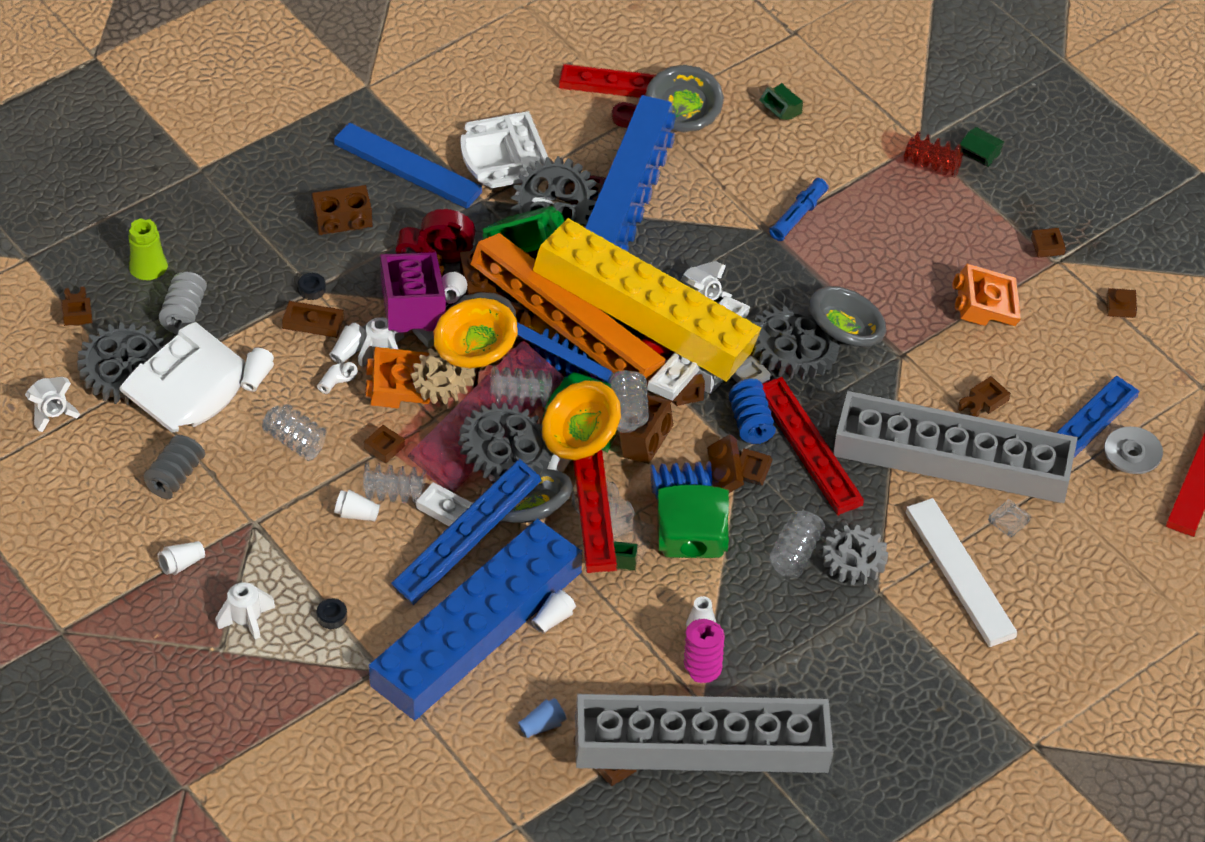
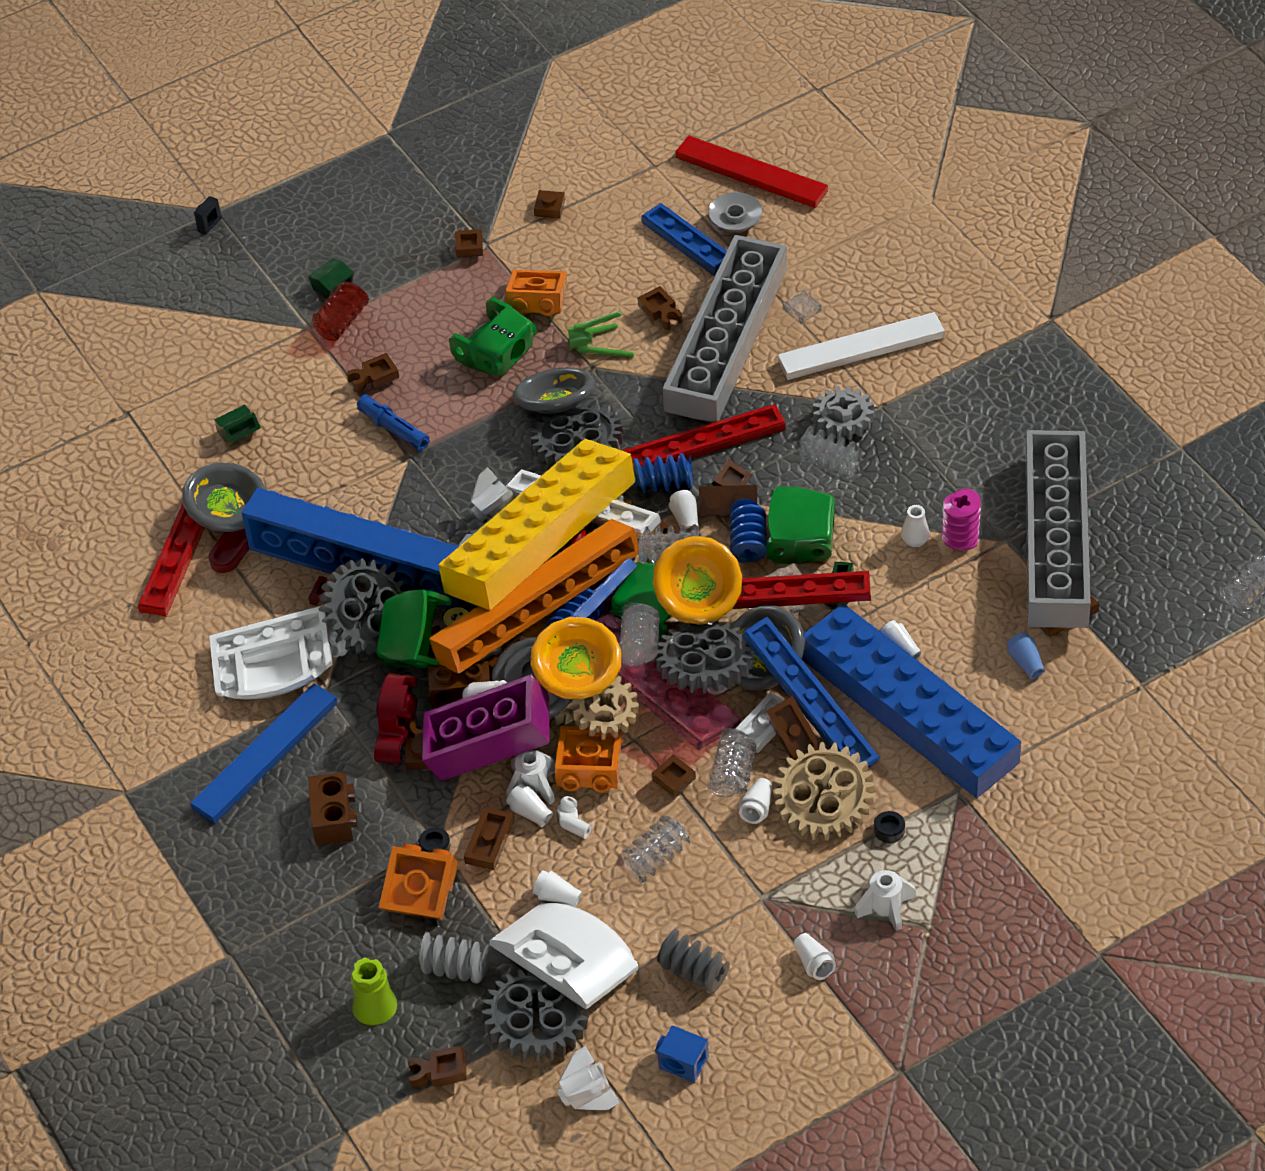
camera: 80 degrees left, 0 degrees up
(79, 466) = (682, 1053): none -> blue brick
(263, 273) = (418, 882): none -> orange plate
(365, 555) = (849, 800): none -> tan gear
(431, 524) = (792, 727): none -> reddish brown plate
(706, 433) = (684, 508): none -> white cone
(861, 191) = (374, 371): none -> reddish brown plate
(912, 274) = (496, 343): none -> green piece
(933, 340) = (581, 335): none -> bright green plant
(1047, 49) = (207, 215): none -> black plate

